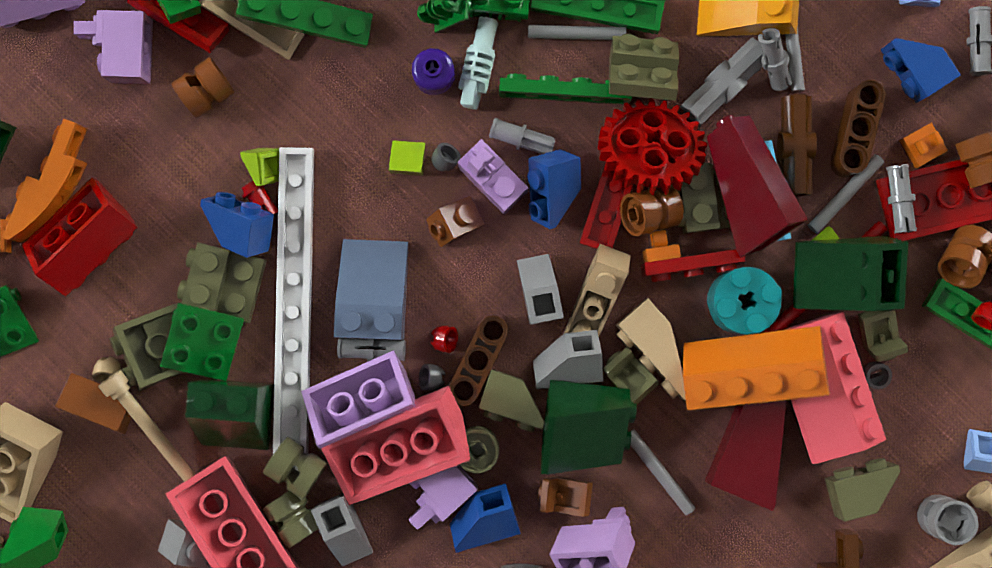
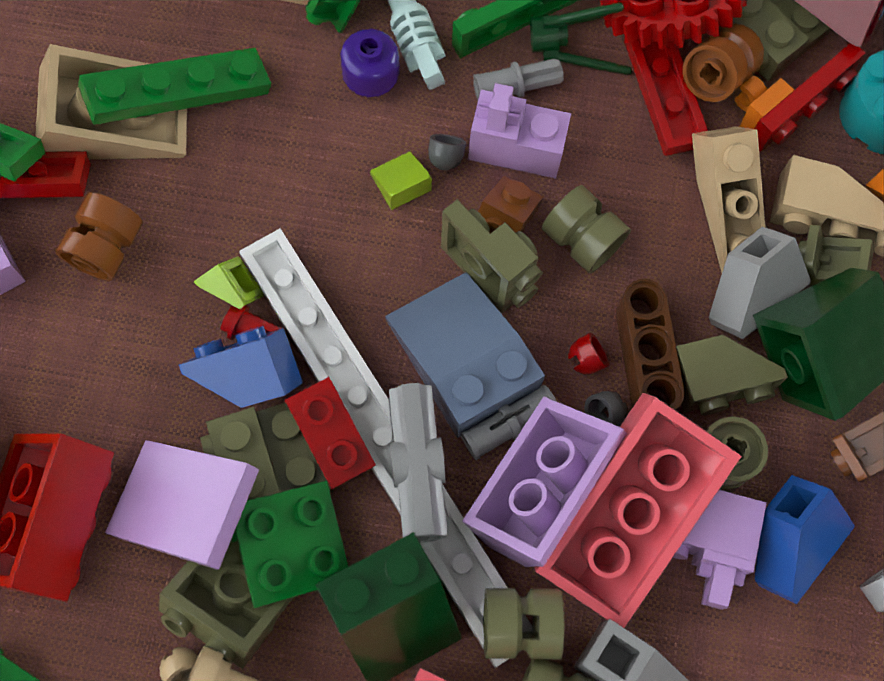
camera: 40 degrees left, 15 degrees down
(155, 282) = (183, 503): none -> lavender tile
(261, 292) = (330, 432): none -> red hinge
(297, 343) = (417, 462): none -> light grey piece
(421, 255) = (497, 262): none -> olive plate
(492, 263) = (581, 225): none -> olive wheel
(540, 289) = (666, 226): light grey slope -> none
(553, 185) = (597, 105): blue slope -> none
(563, 118) = (551, 32): none -> dark green plant

